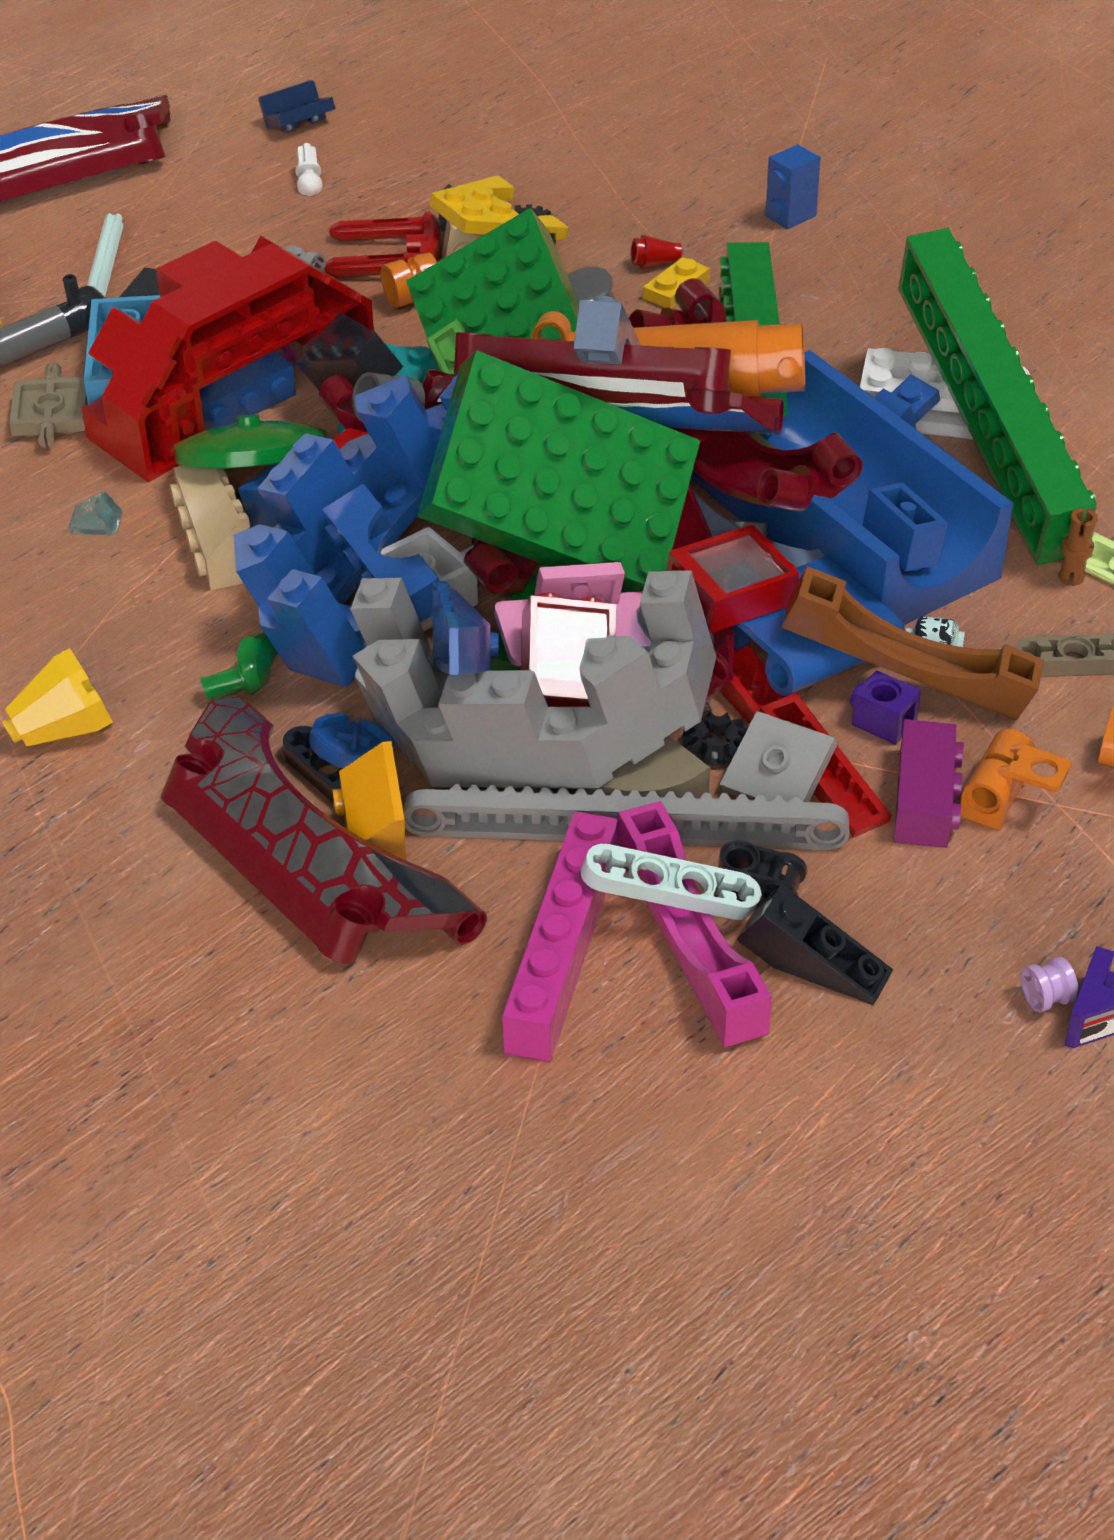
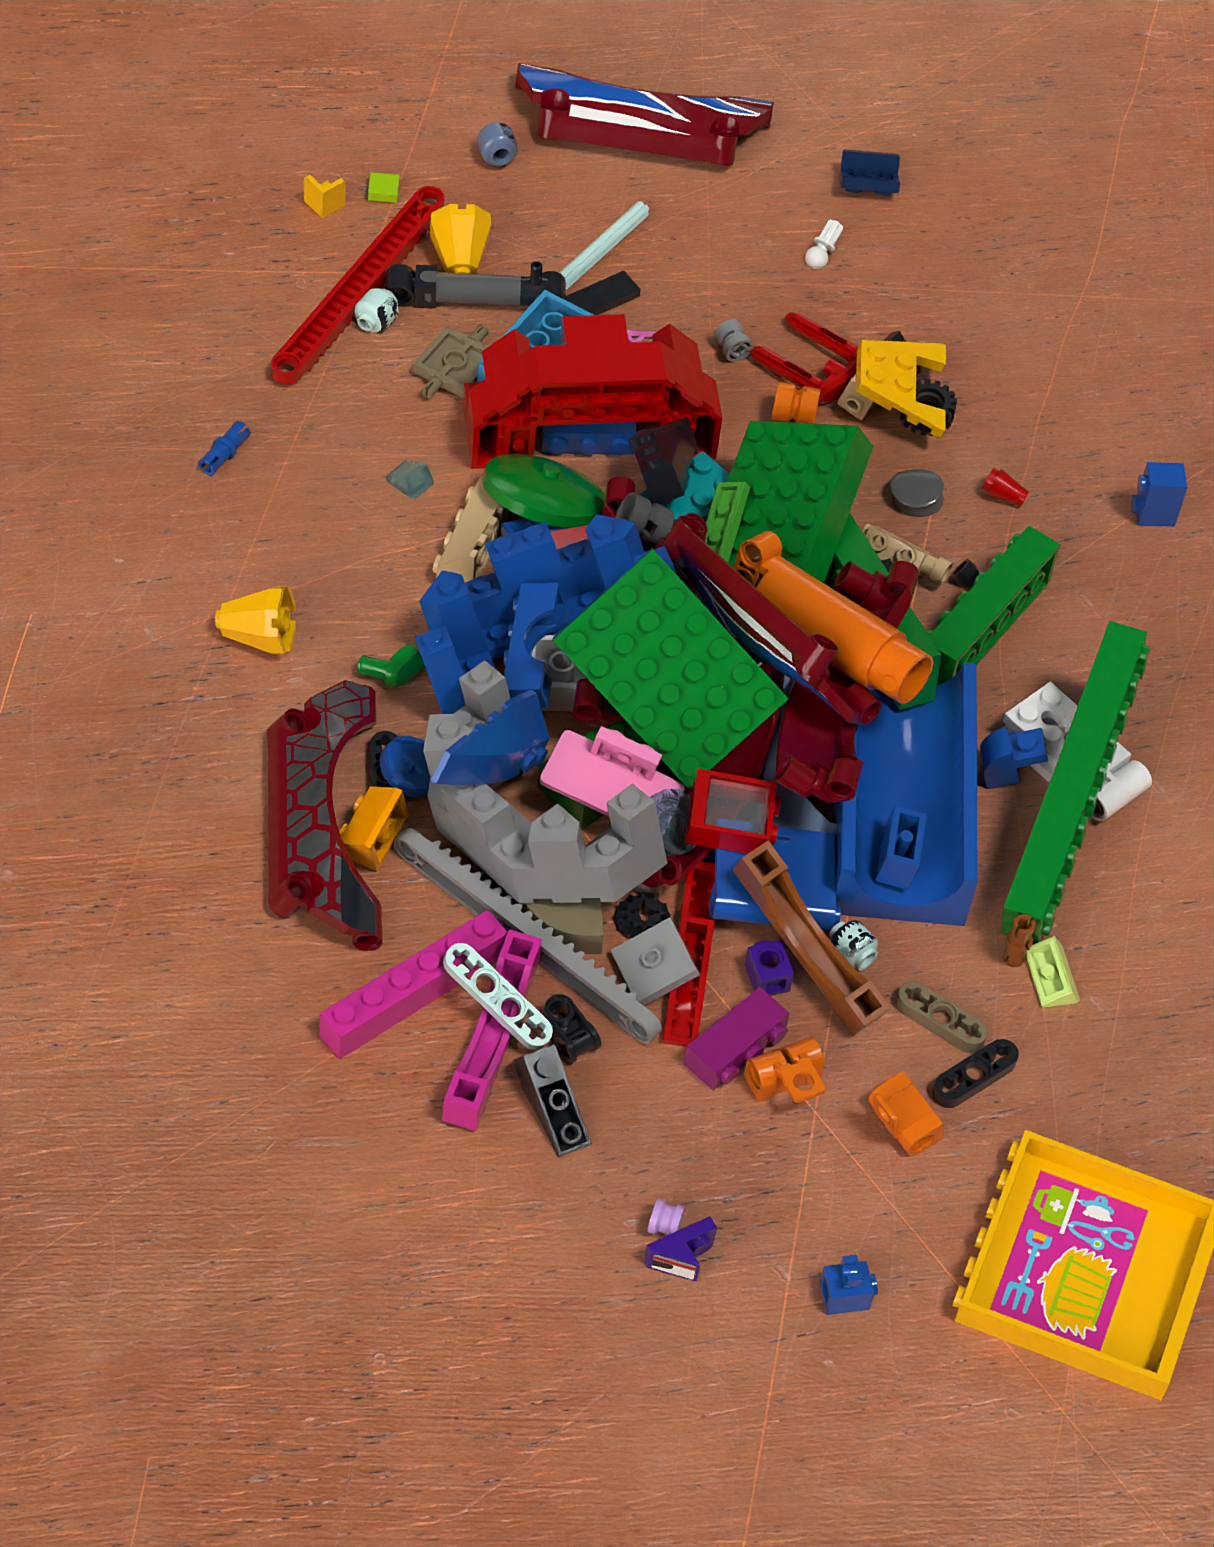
camera: 30 degrees right, 10 degrees up
(555, 639) = (576, 788): window -> none
(603, 331) = (752, 584): sand blue arch -> none
(663, 287) = (994, 525): yellow plate -> none

